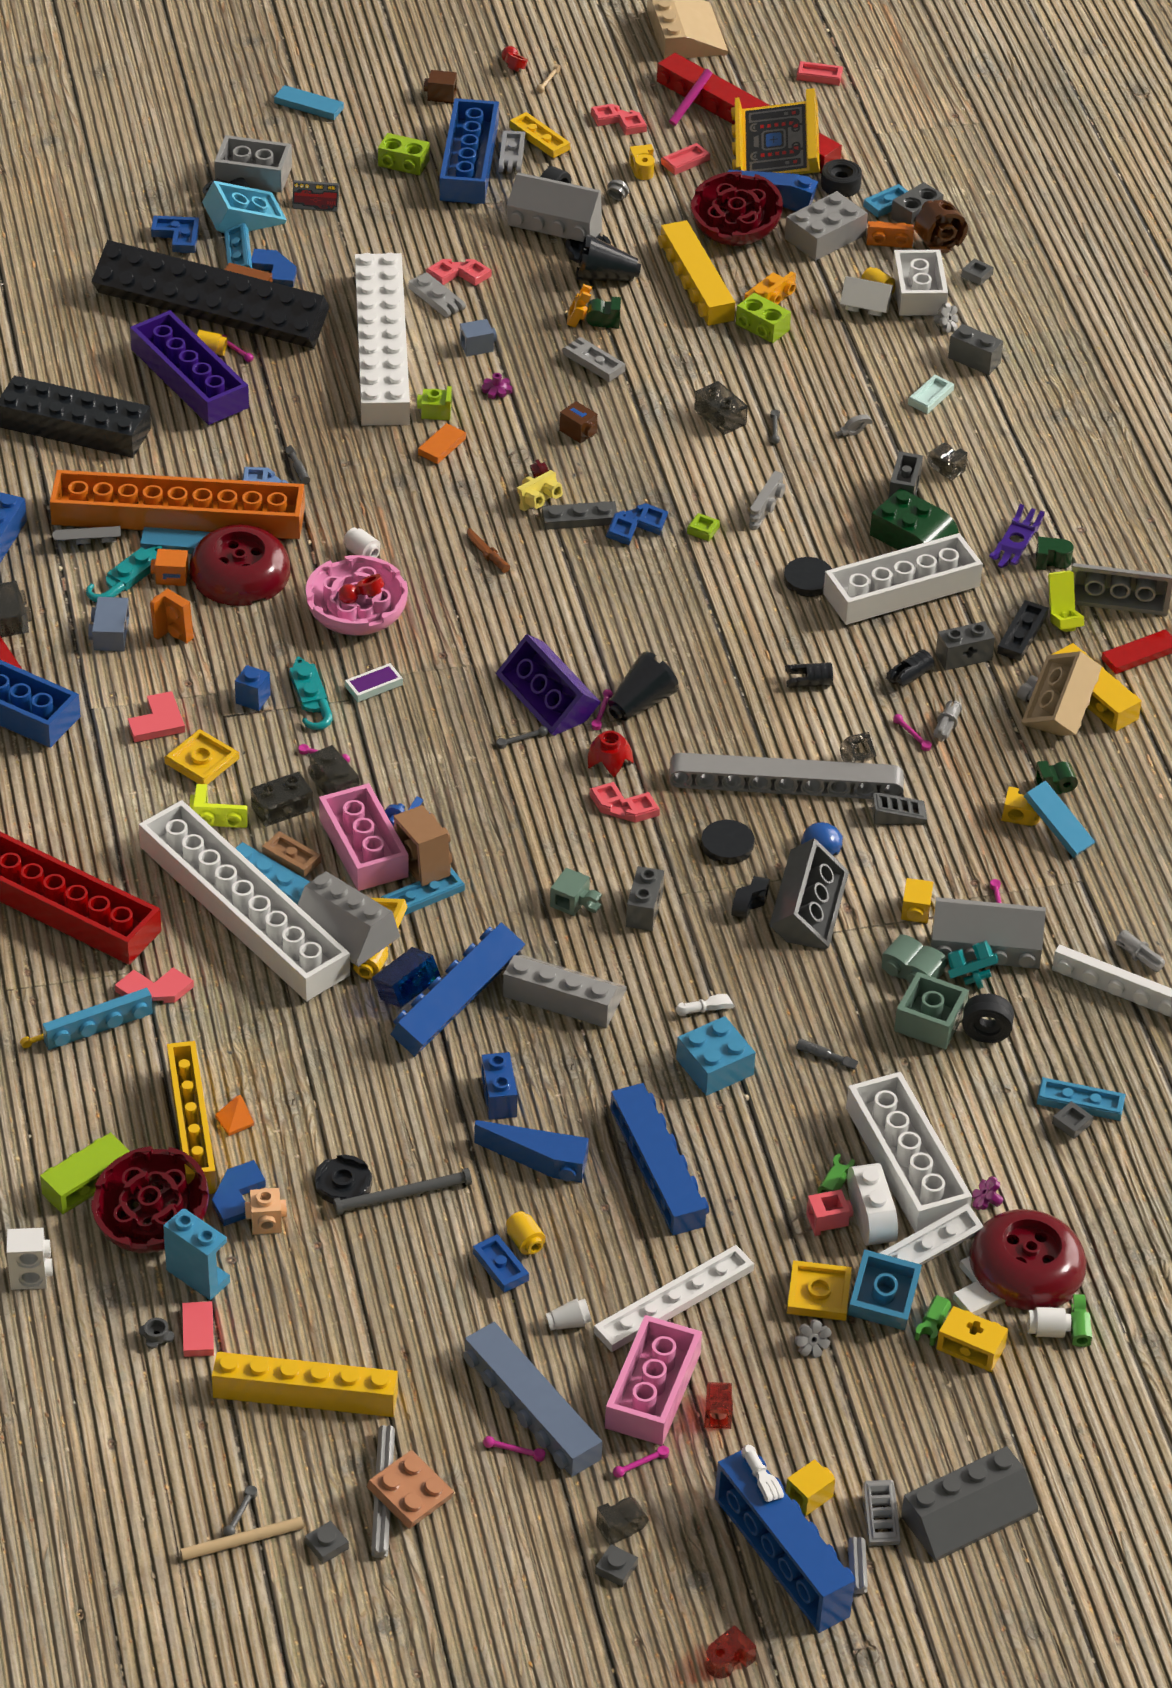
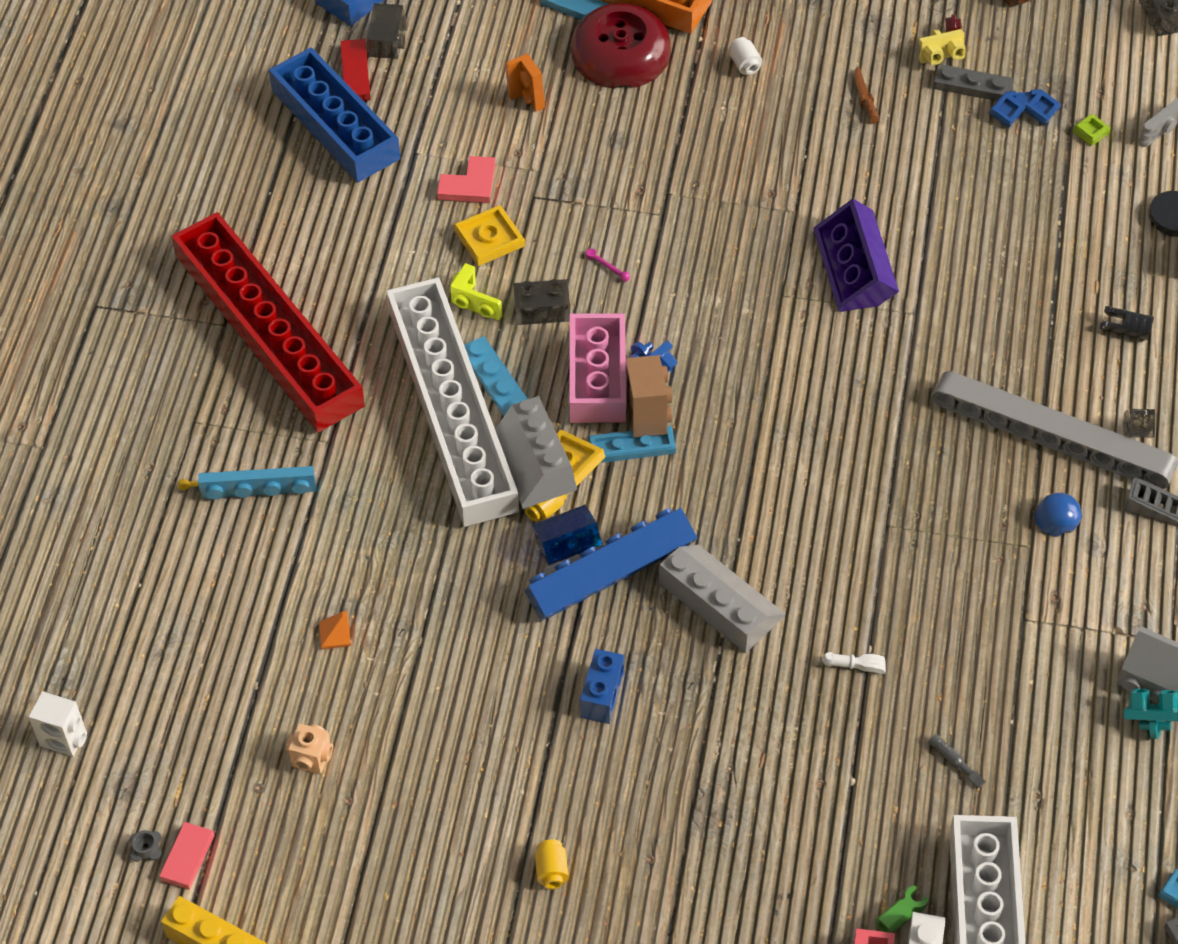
camera: 25 degrees right, 10 degrees up
(76, 1177) = (164, 646): lime brick -> none
(110, 624) = (471, 72): sand blue brick -> none
(126, 573) = (515, 25): teal plate -> none
(138, 1178) = (189, 678): dark red brick -> none
(167, 988) = (338, 470): coral tile -> none
(170, 567) = (555, 30): orange brick -> none
(191, 1109) = (287, 622): yellow brick -> none
(192, 1253) = (213, 777): dark azure panel -> none
(236, 1182) = (301, 704): blue tile -> none
(252, 688) = (569, 176): blue brick -> none
(291, 854) = (524, 363): medium nougat plate -> none
(310, 692) = (625, 197): teal plate -> none
(331, 771) = (600, 289): clear smoke brick -> none
(342, 1178) = (405, 737): black tile -> none
(367, 586) = (720, 104): red plate -> none
(367, 613) = (696, 107): bright pink brick -> none
(373, 682) = (690, 203): tile -> none
(402, 1191) = (454, 771): dark grey bar -> none
(500, 1263) = (511, 889): blue plate -> none
(502, 743) = (786, 304): dark grey hinge -> none
(544, 1151) = (621, 782): blue slope -> none
(572, 892) = (777, 491): sand green brick -> none
(597, 724) = (888, 311): dark pink hinge -> none
(611, 750) = (882, 352): red piece -> none
(634, 809) = (882, 417): coral tile -> none
(642, 687) = (946, 288): black cone -> none
(645, 898) = (845, 522): dark grey brick -> none
(658, 1159) = (725, 826): blue brick -> none
(715, 1055) = (836, 726): dark azure brick -> none
(728, 841) = (961, 483): black tile -> none
(750, 897) = (955, 554): black piece -> none
(809, 896) = (1016, 574): dark grey slope -> none
(909, 956) = (1094, 686): sand green brick -> none
(917, 900) = (1128, 615): yellow brick -> none
(931, 1010) = (1086, 750): sand green brick -> none
(988, 1006) = (1143, 781): black tyre -> none

